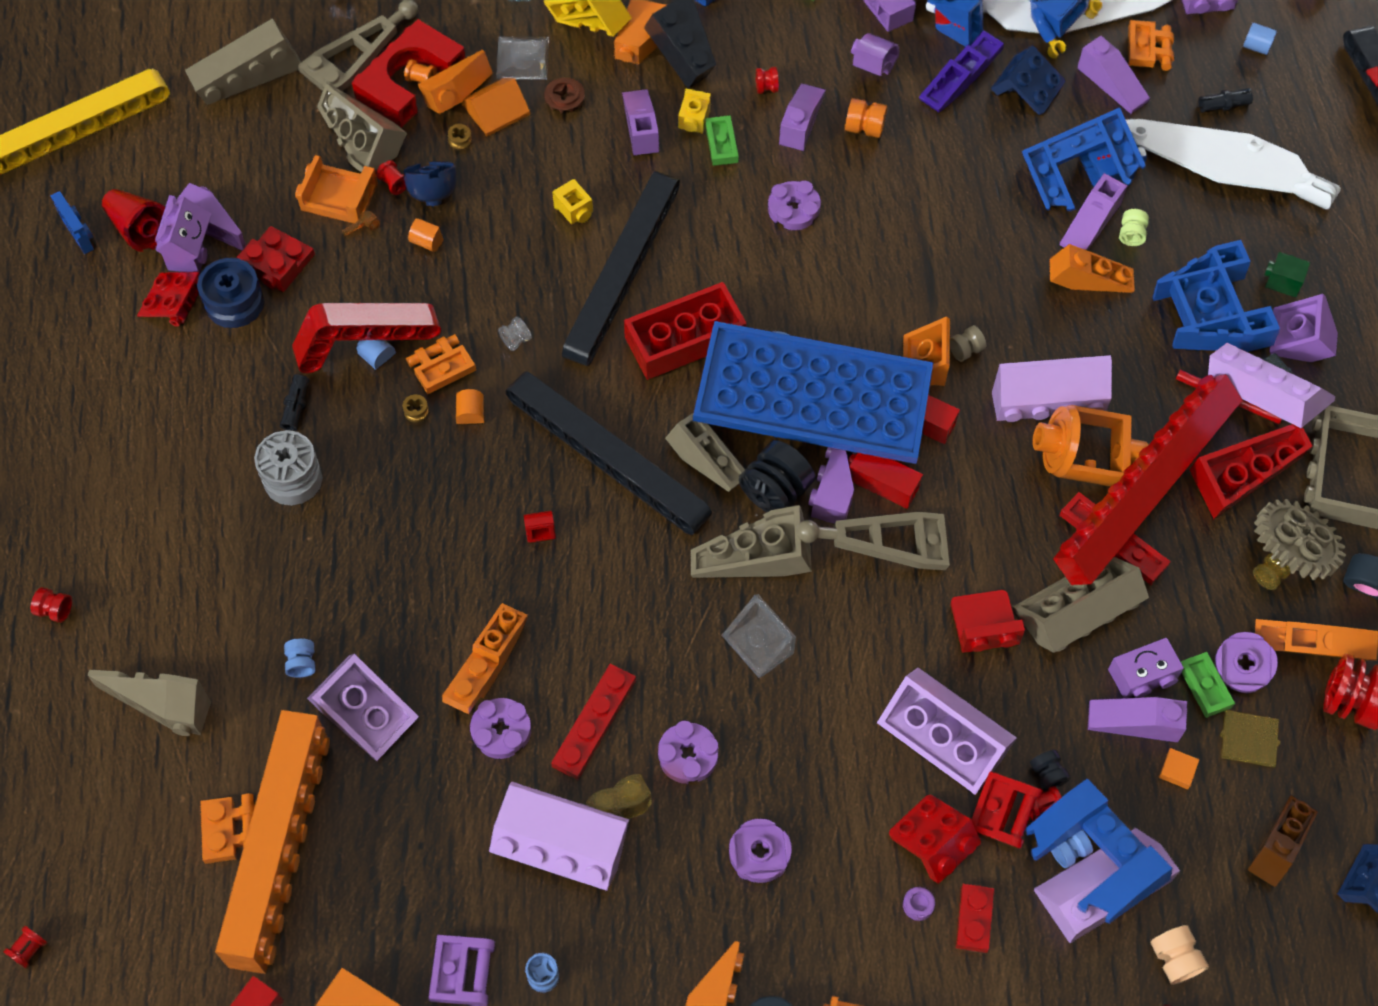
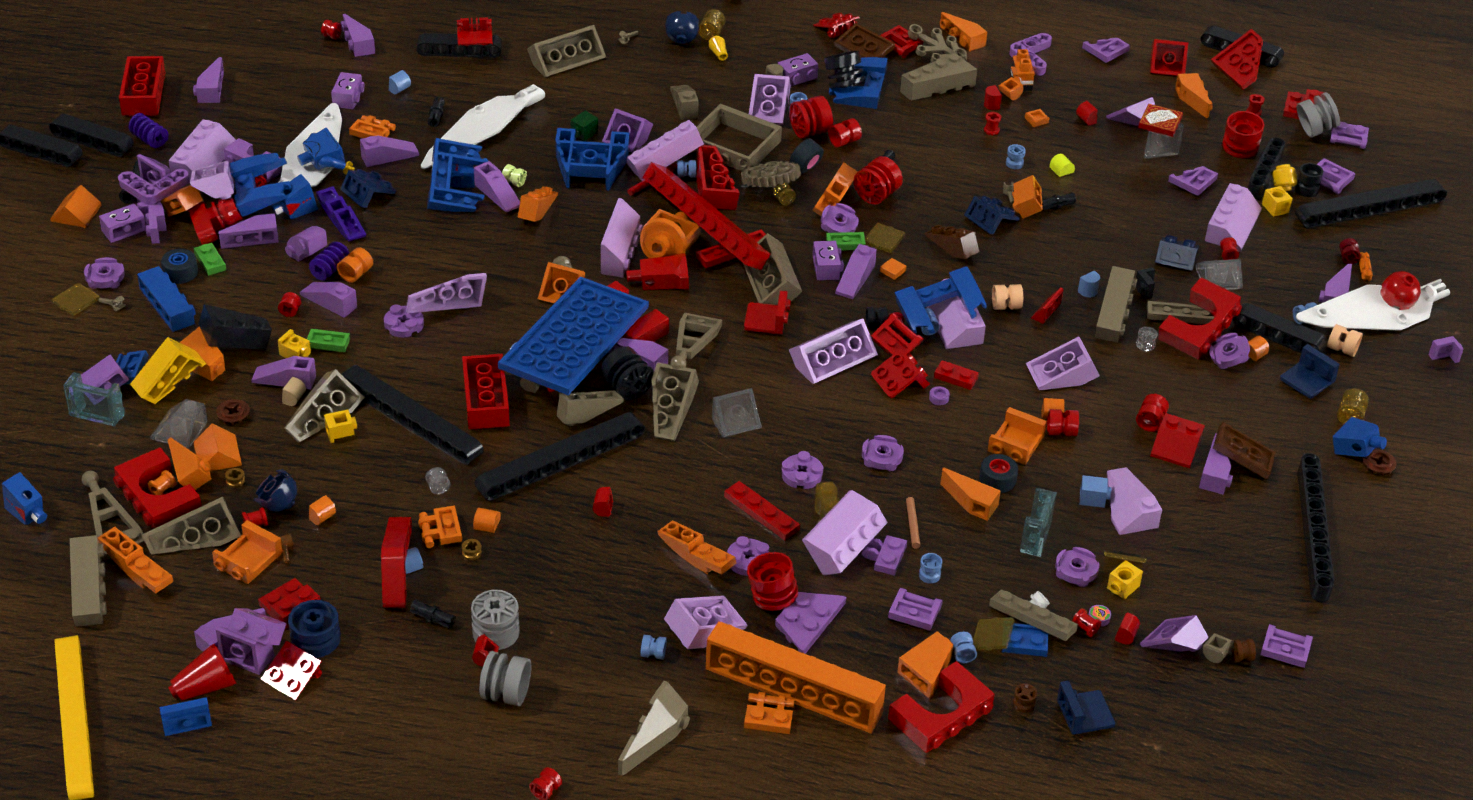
camera: 75 degrees left, 20 degrees down
(190, 507) = (505, 678): none -> light grey wheel
(245, 476) = (482, 649): none -> red brick
(290, 94) = (133, 561): none -> orange slope
(408, 832) = (808, 618): none -> medium lavender wing
(437, 766) = (772, 581): none -> red wheel
(559, 911) = (886, 554): none -> medium lavender hinge
(605, 177) = (328, 396): none -> dark tan wedge
(615, 137) = (293, 391): none -> tan brick
(635, 928) = (914, 532): none -> nougat bar
(853, 237) = (454, 294): none -> lavender wedge
(863, 89) = (327, 260): none -> dark purple piece
(1015, 464) = (662, 273): none -> red piece
(1258, 423) = (682, 168): none -> medium blue wheel

